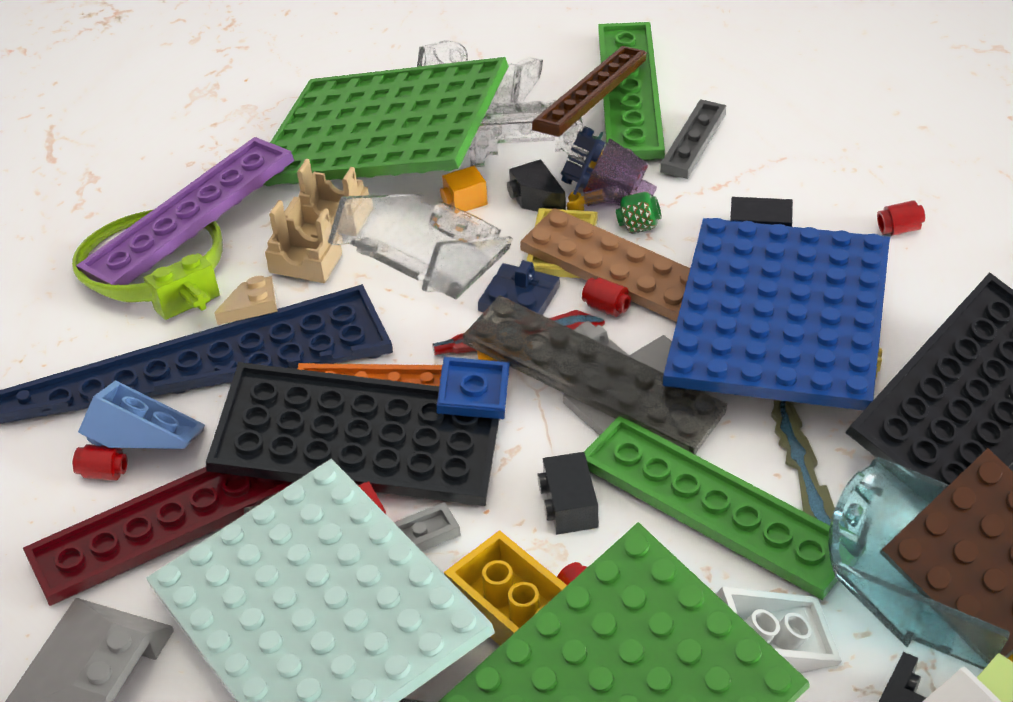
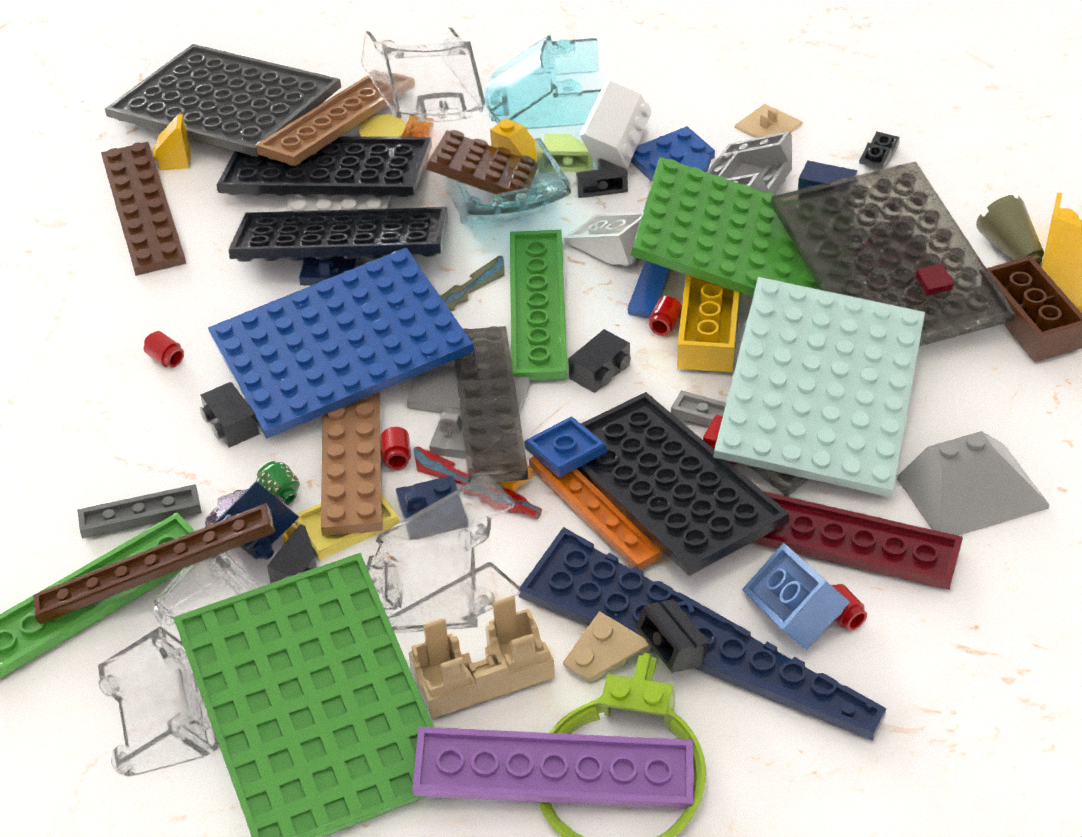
camera: 130 degrees left, 0 degrees up
(195, 318) = (672, 635): none -> black brick

